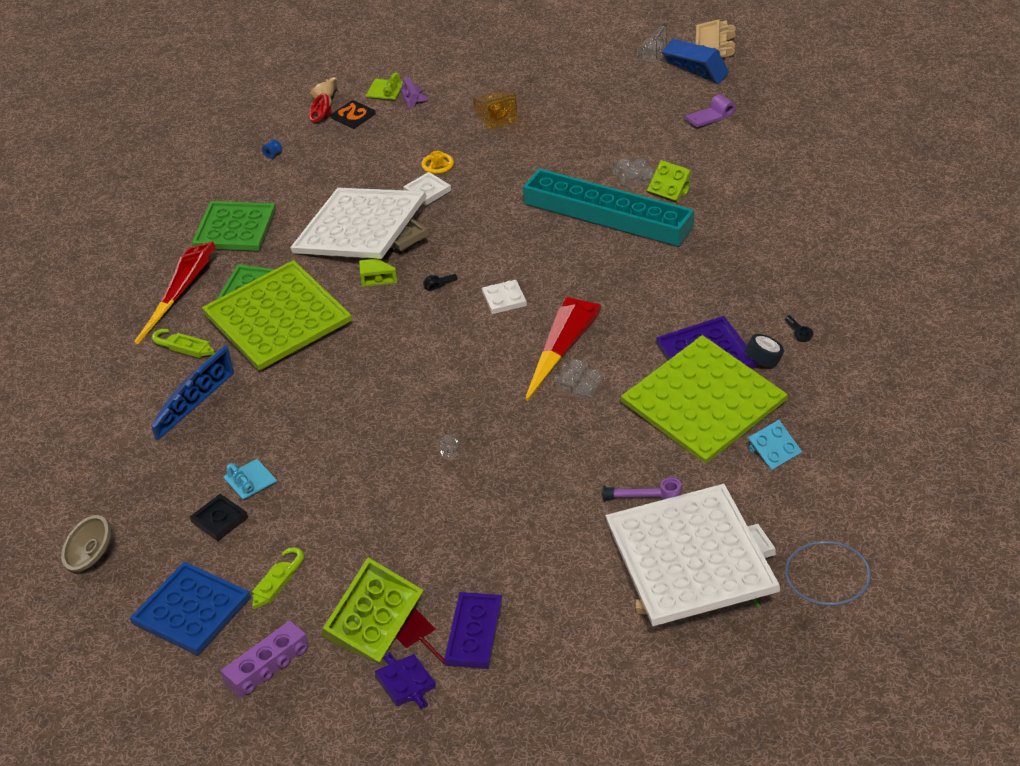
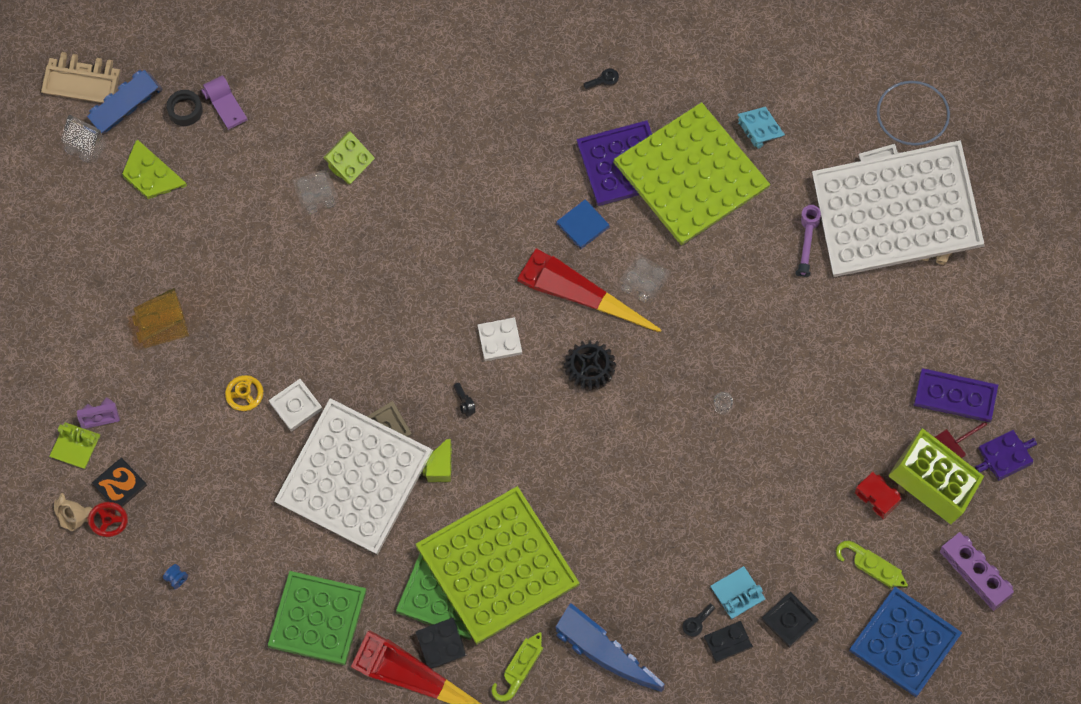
camera: 85 degrees left, 25 degrees up
(200, 477) = (728, 641): none -> black plate
(205, 292) = (441, 643): none -> black plate
(217, 451) = (693, 626): none -> black plate
(342, 574) = (879, 494): none -> red brick
(481, 352) = (582, 378): none -> black gear
(609, 207) = (380, 222): teal brick -> none
(634, 335) = (583, 224): none -> blue tile
(635, 87) = (149, 173): none -> lime wing
(699, 99) = (188, 119): none -> black tyre
(764, 350) = (636, 111): black wheel -> none

